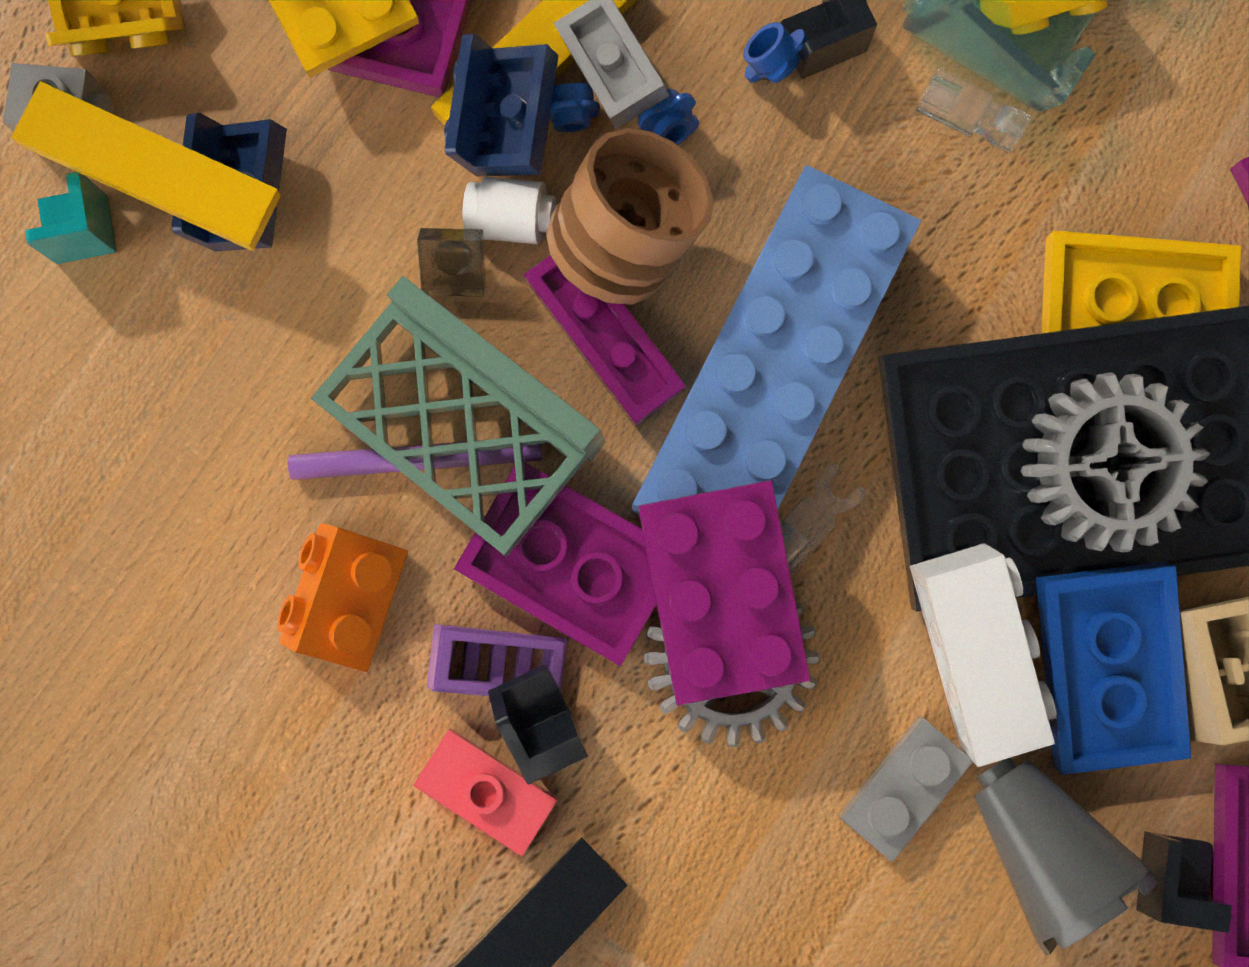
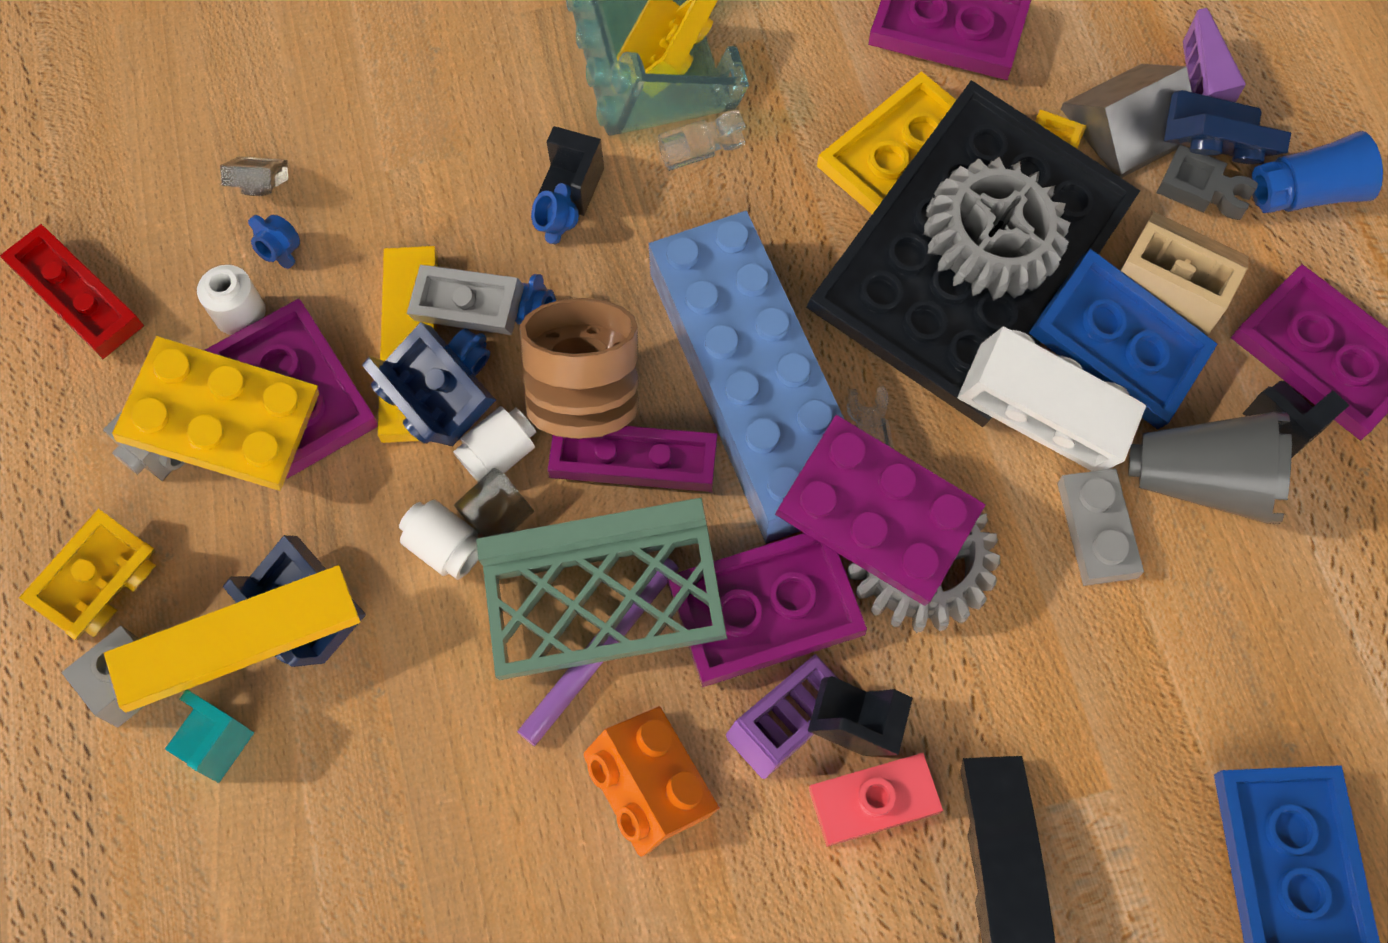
camera: 50 degrees left, 15 degrees down
(387, 242) = (439, 538): none -> white brick

